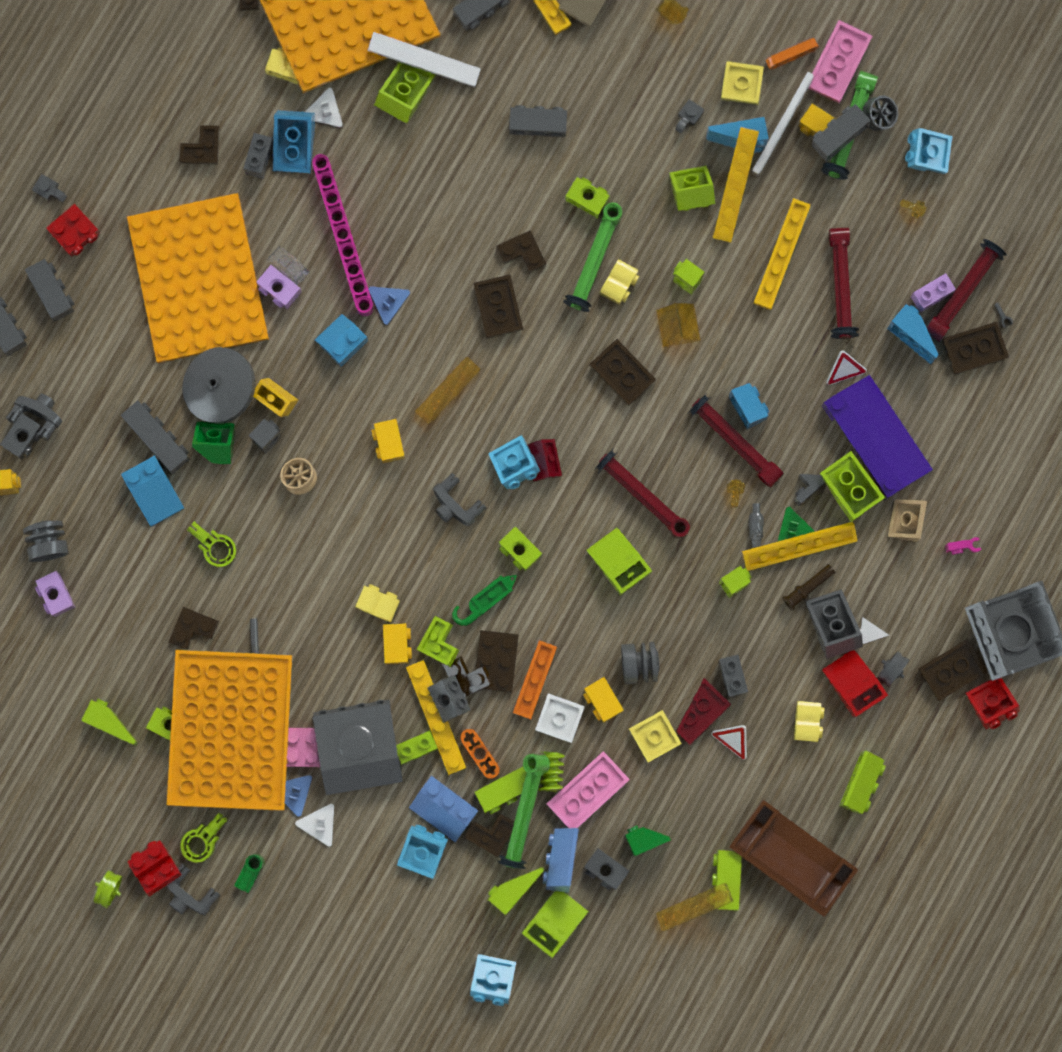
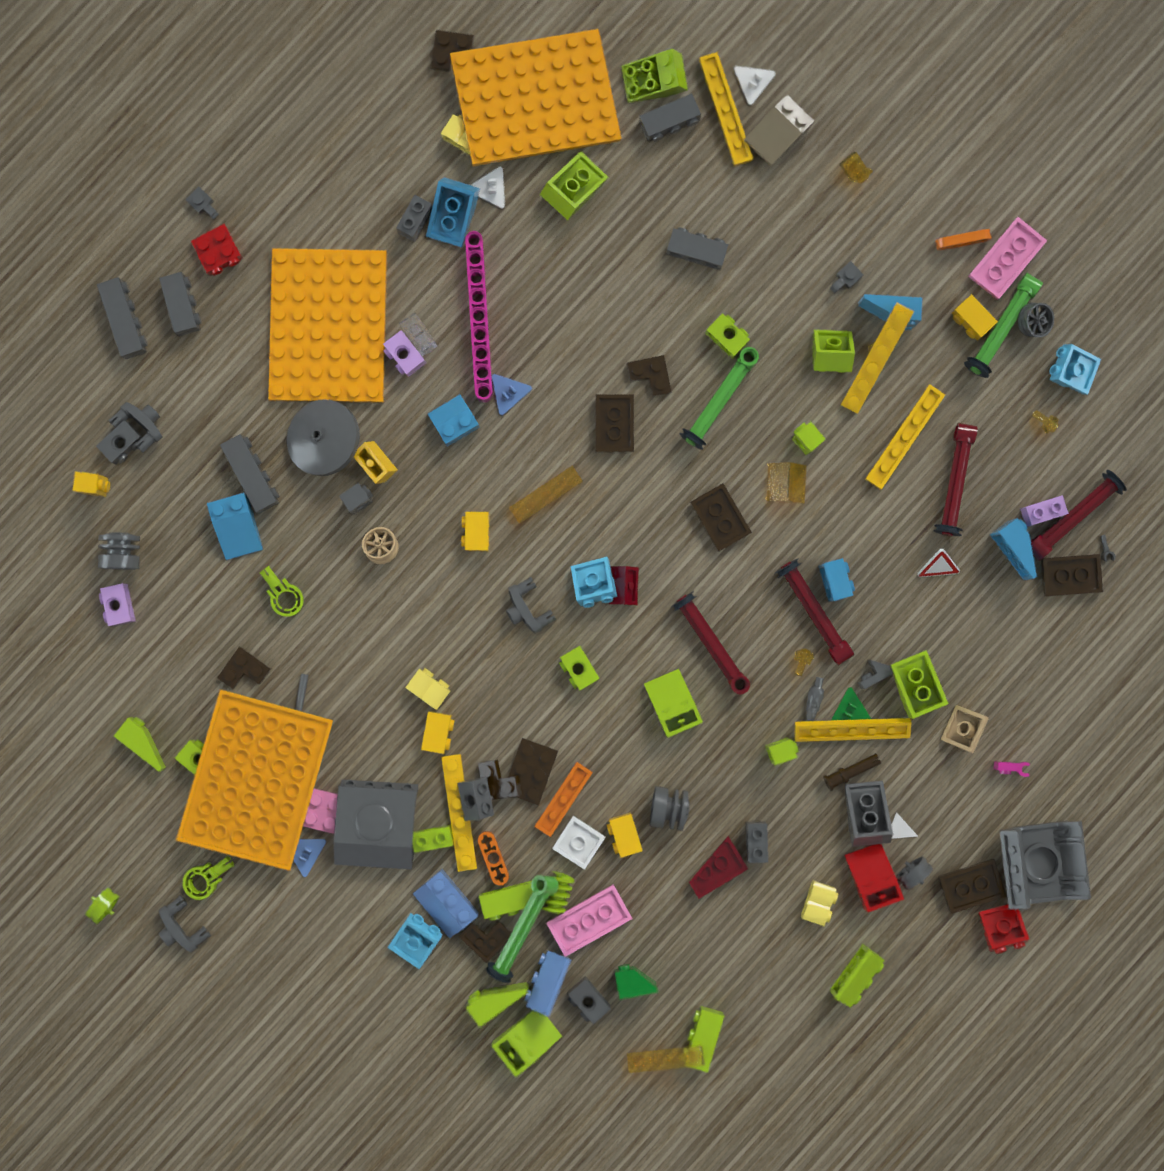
camera: 10 degrees right, 5 degrees up
(154, 867) = (152, 895): red plate -> none
(206, 151) = (363, 201): dark brown plate -> none
(215, 441) = (306, 492): green slope -> none
(249, 874) = (243, 921): green piece -> none
(319, 824) = (322, 889): white piece -> none
(423, 59) = (599, 160): white tile -> none
(434, 645) = (473, 741): lime plate -> none
(486, 599) = (534, 709): green plate -> none
(492, 980) = (454, 1081): medium azure plate -> none
(619, 282) = (739, 427): light yellow brick -> none
(655, 736) = (667, 882): light yellow plate -> none
(734, 739) = (743, 903): piece -> none
(742, 83) = (907, 257): light yellow plate -> none
(783, 124) = (938, 307): white tile -> none
(793, 858) = (773, 1034): reddish brown slope -> none
(840, 132) = (993, 330): dark grey brick -> none
(877, 436) = (955, 640): dark purple slope -> none

